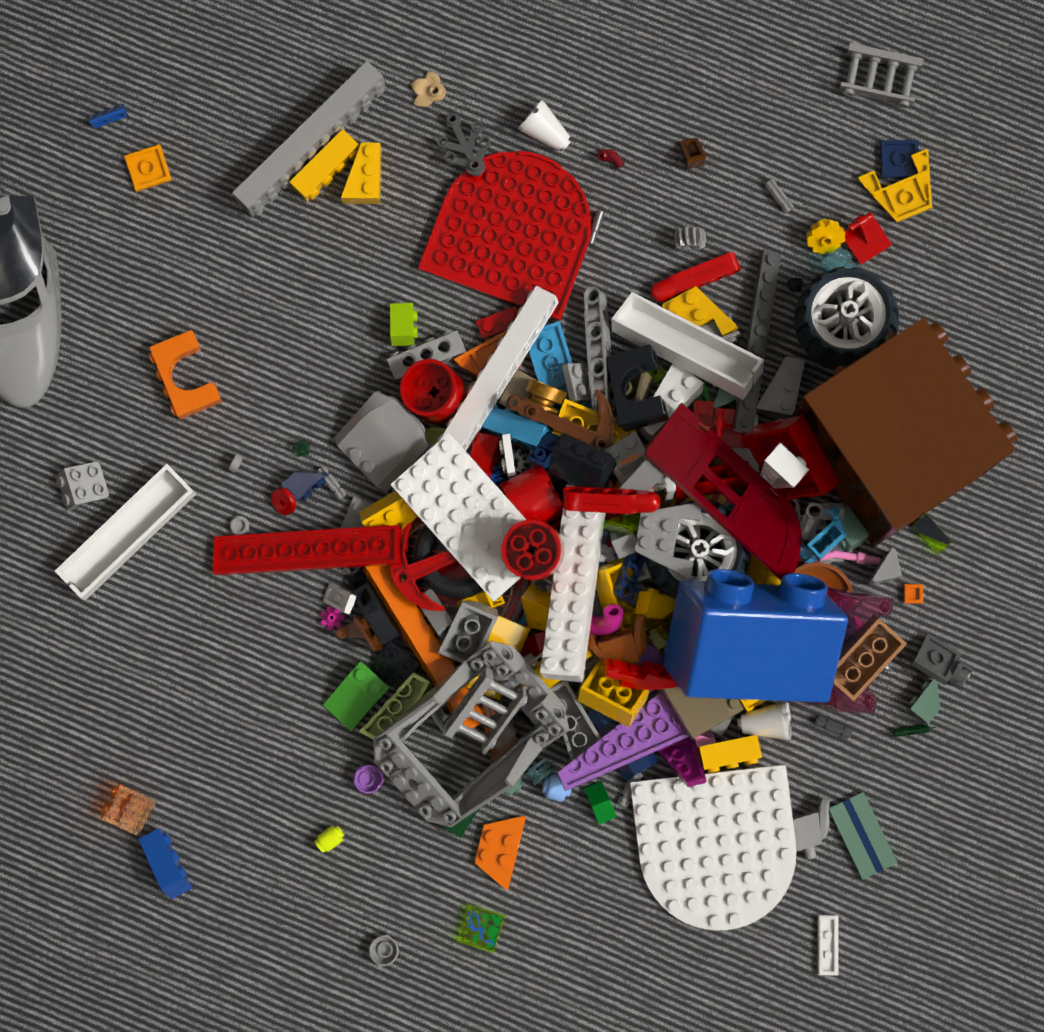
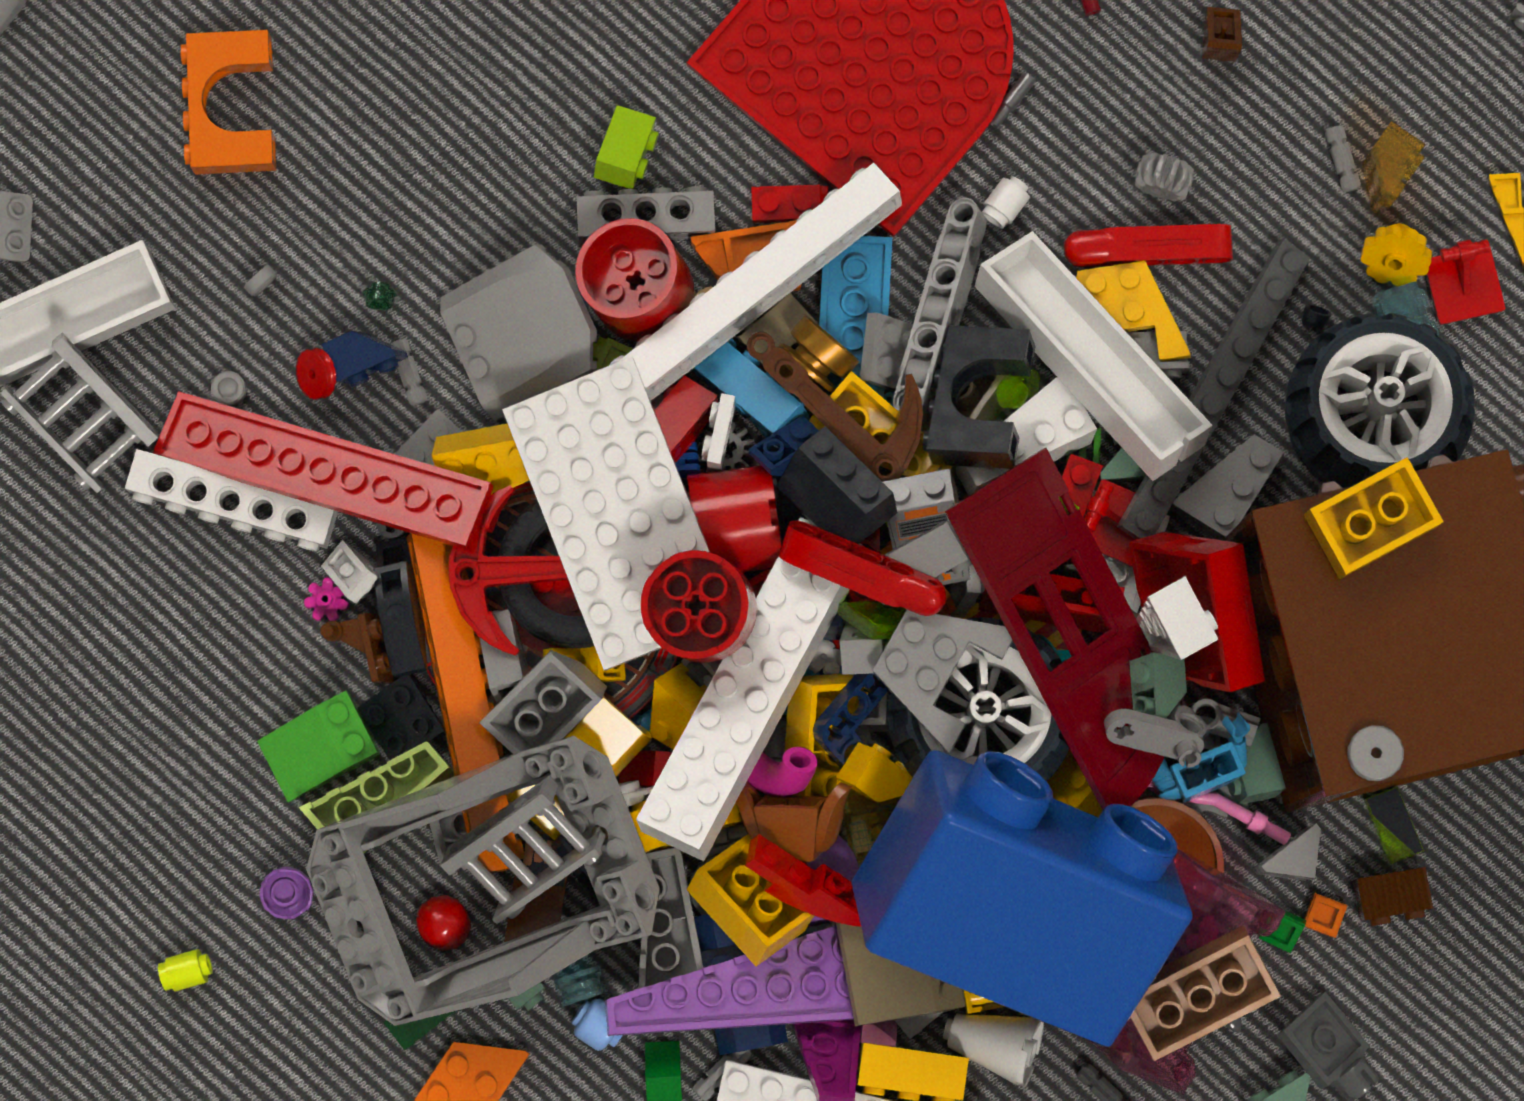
camera: 15 degrees right, 0 degrees up
(166, 547) = (89, 380): none -> light grey fence
(214, 581) = (149, 468): none -> white brick
(455, 764) = (443, 922): none -> red hair
(612, 281) = (1005, 201): none -> white brick
(652, 380) = (1012, 393): none -> clear neon green plate
(784, 506) = (1157, 683): none -> sand green slope
(802, 528) = (1175, 737): none -> light grey piece
(804, 189) = (1391, 159): none -> clear yellow slope
(868, 377) = (1373, 518): none -> yellow brick
(897, 611) = (1287, 933): none -> green tile
(919, 493) = (1390, 753): none -> light grey piece
(944, 570) = (1393, 894): none -> reddish brown brick

